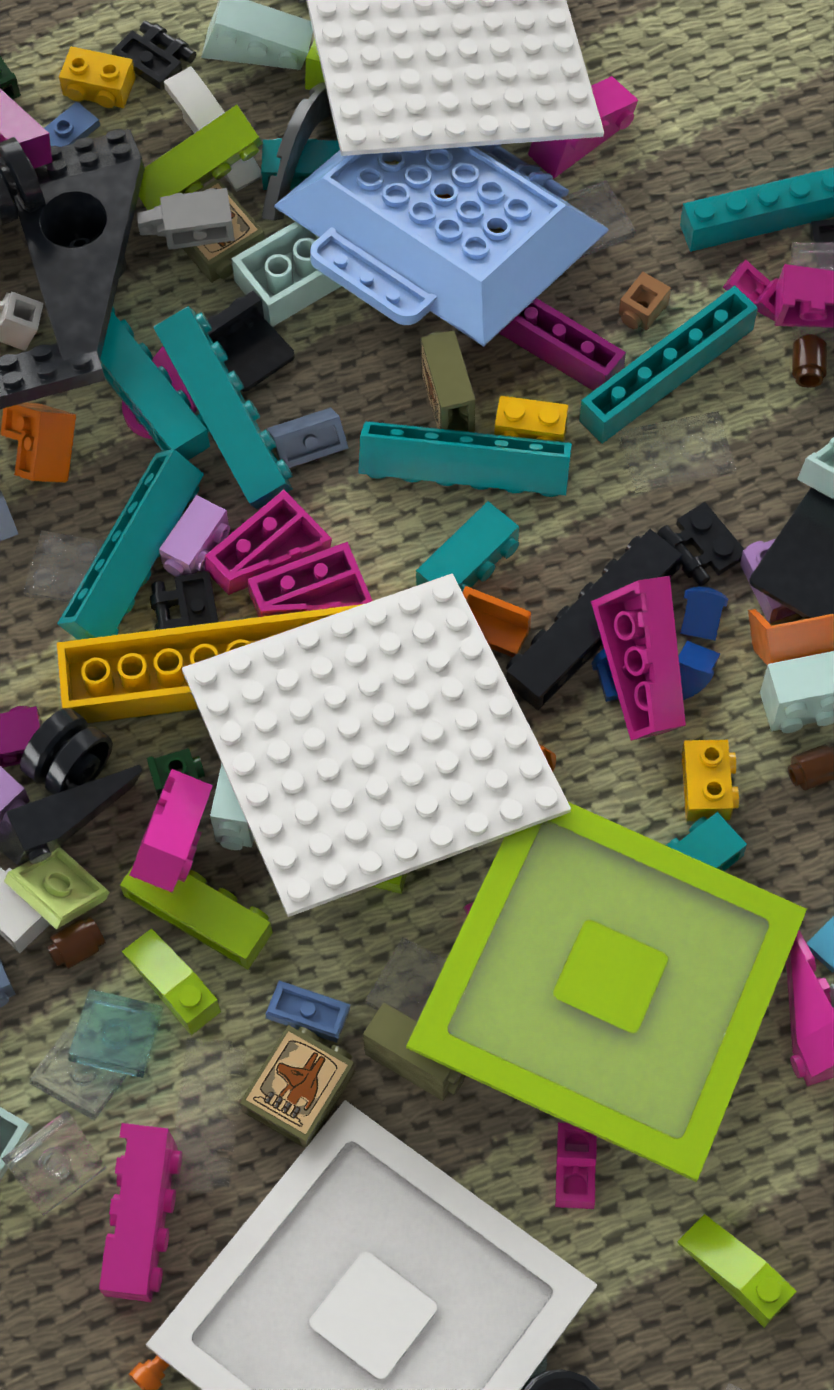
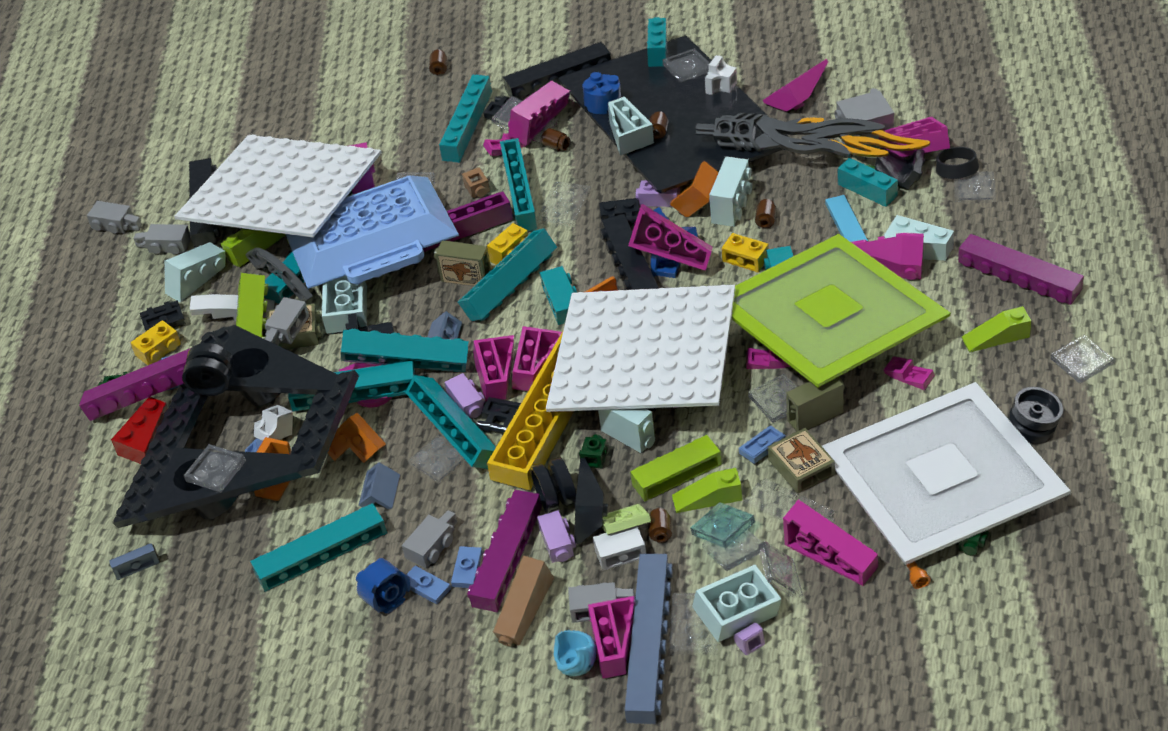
camera: 55 degrees left, 20 degrees down
(172, 832) = (632, 448): dark pink wedge -> none

